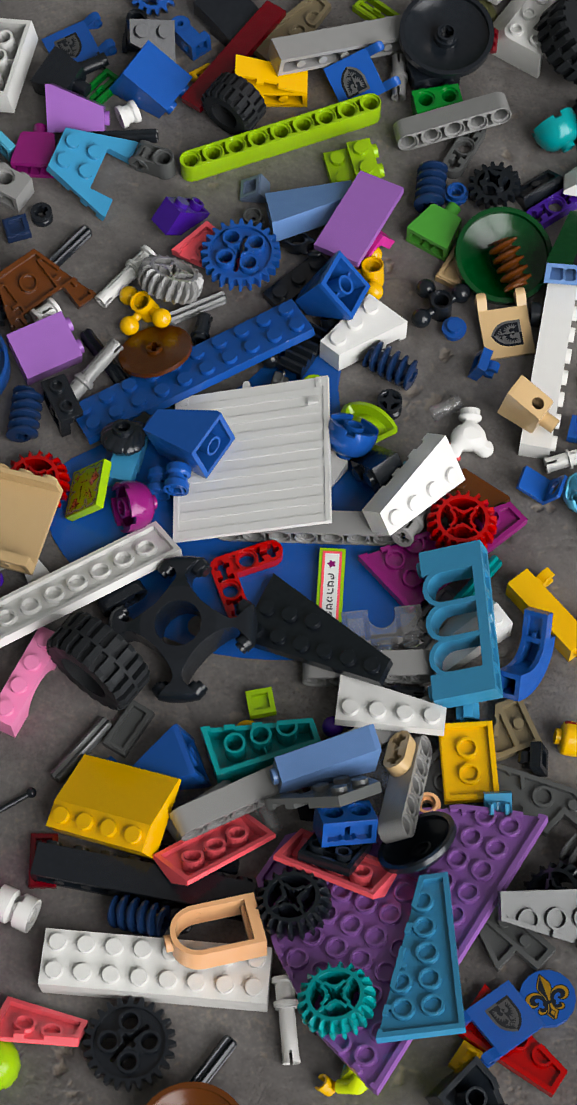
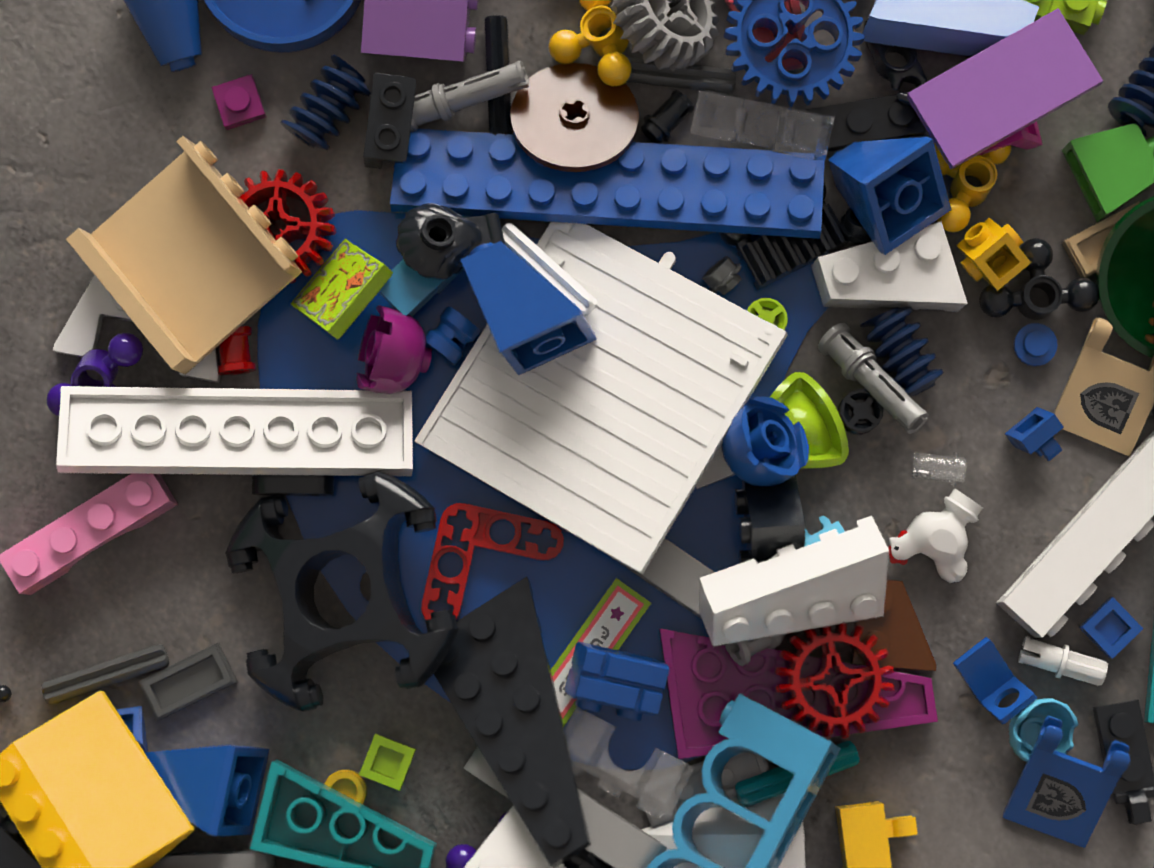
camera: 30 degrees right, 20 degrees up
(52, 556) = (236, 353): none -> red bush
(98, 660) = (184, 581): black tyre -> none
(177, 478) = (474, 353): blue wheel -> none
(238, 307) = (762, 124): none -> clear arch
(352, 590) = (616, 680): none -> blue brick
(375, 380) = (860, 365): none -> light grey pin
(404, 296) = (992, 253): none -> yellow brick
(528, 407) = (1044, 549): tan torso -> none

